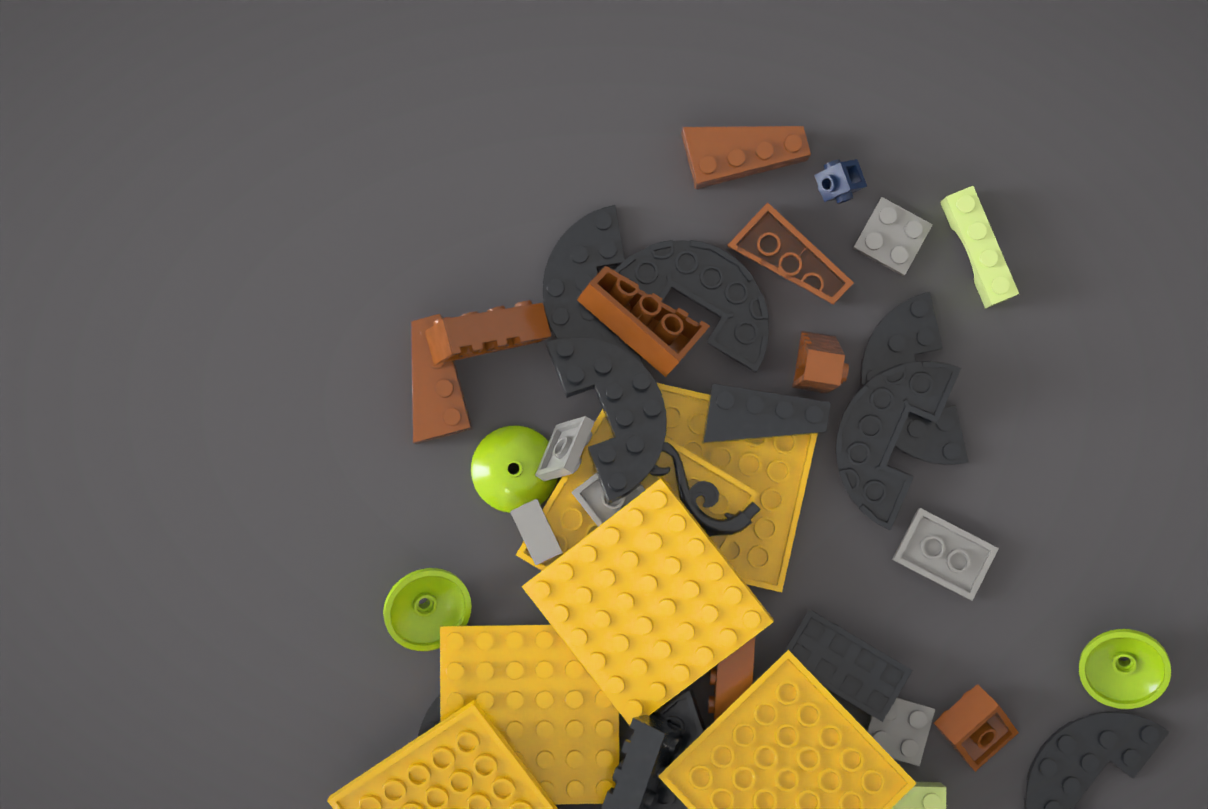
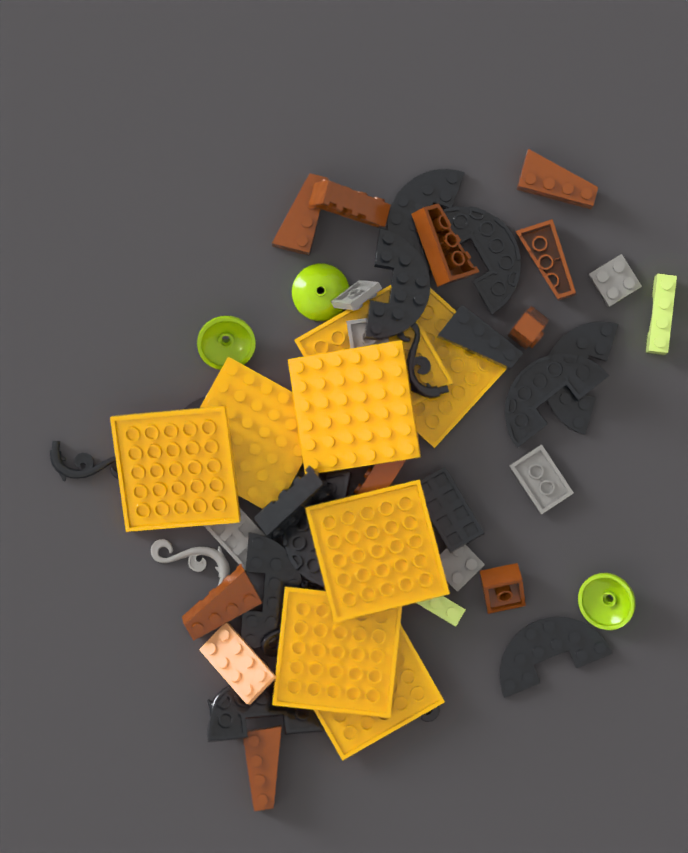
camera: 25 degrees right, 0 degrees up
(536, 531) = (313, 332): light grey tile -> none
(840, 180) = (602, 230): dark blue brick -> none

